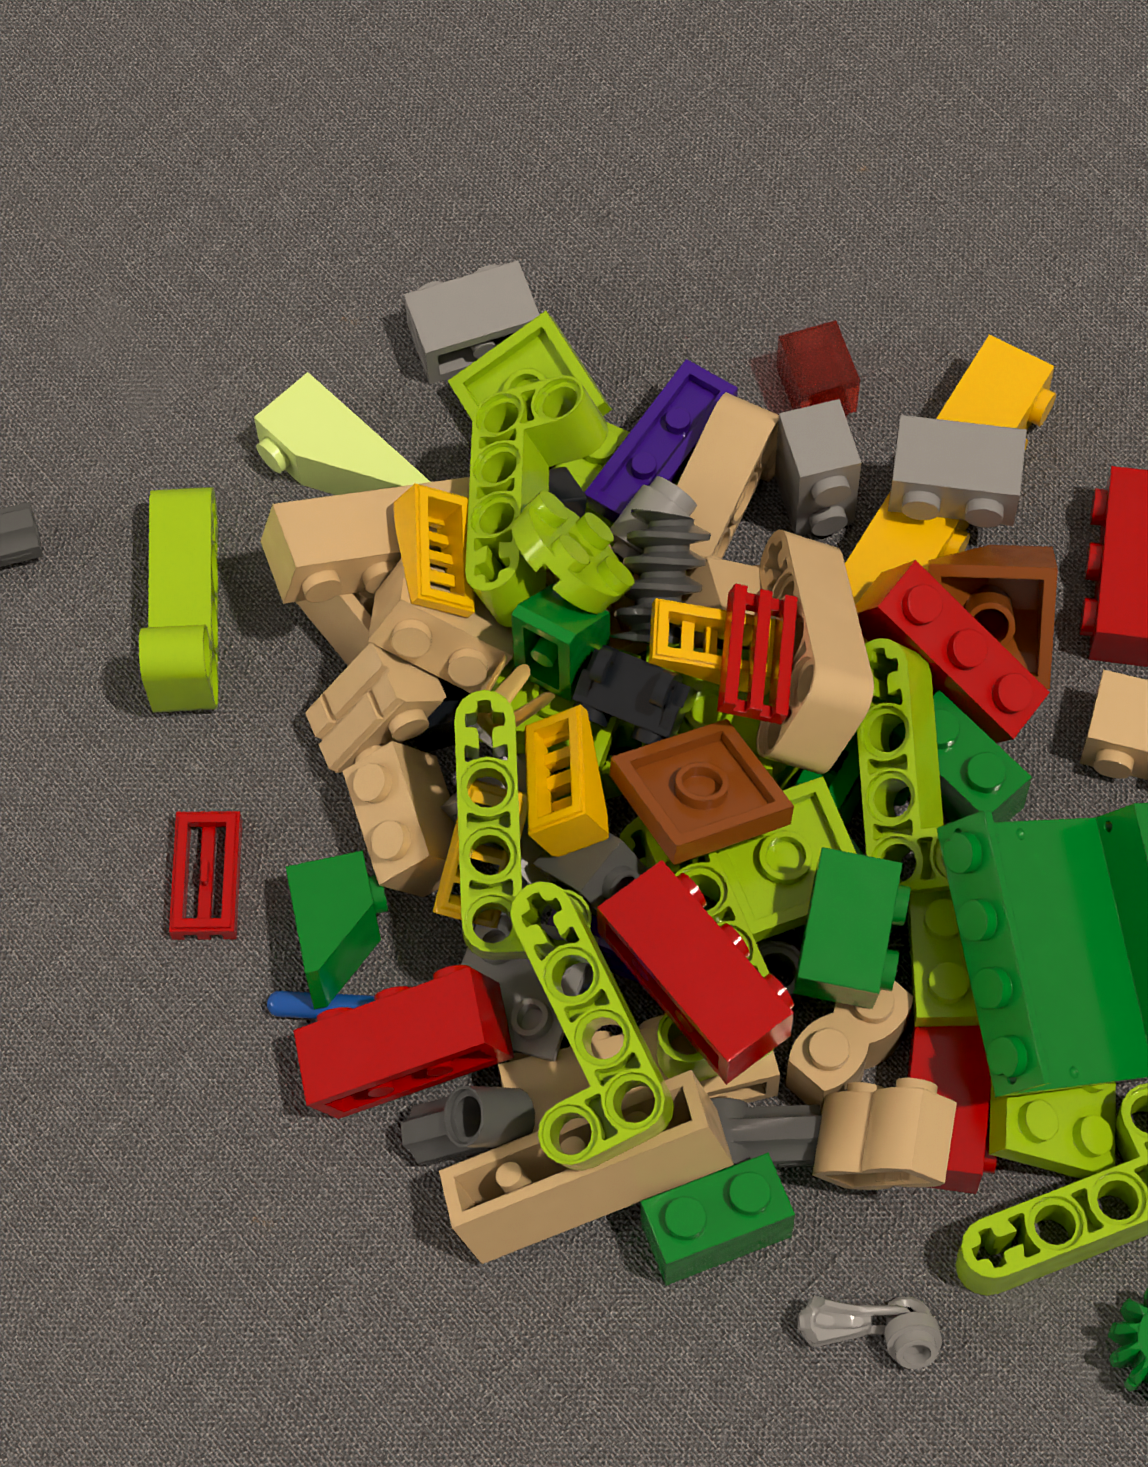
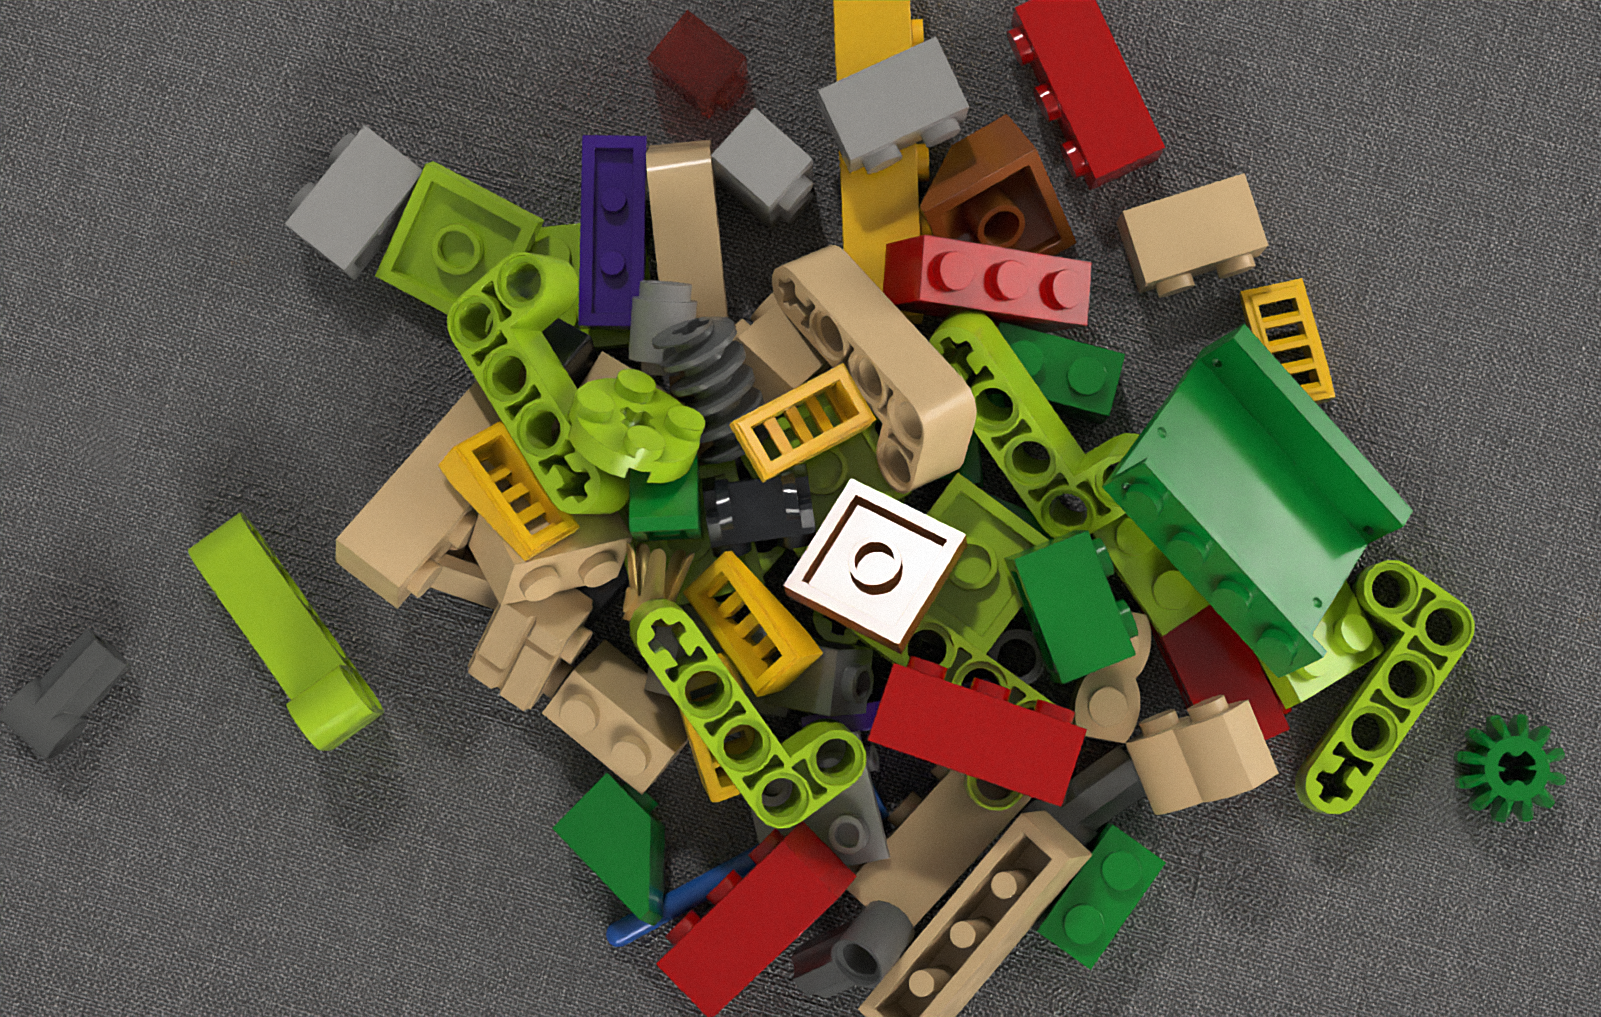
camera: 30 degrees left, 20 degrees up
(204, 924) = (499, 847): red tile -> none
(327, 443) = (317, 408): yellowish green slope -> none
(580, 1019) = (911, 844): lime beam -> none
(764, 607) = (870, 403): red tile -> none
(909, 1336) = (1307, 892): light grey piece -> none

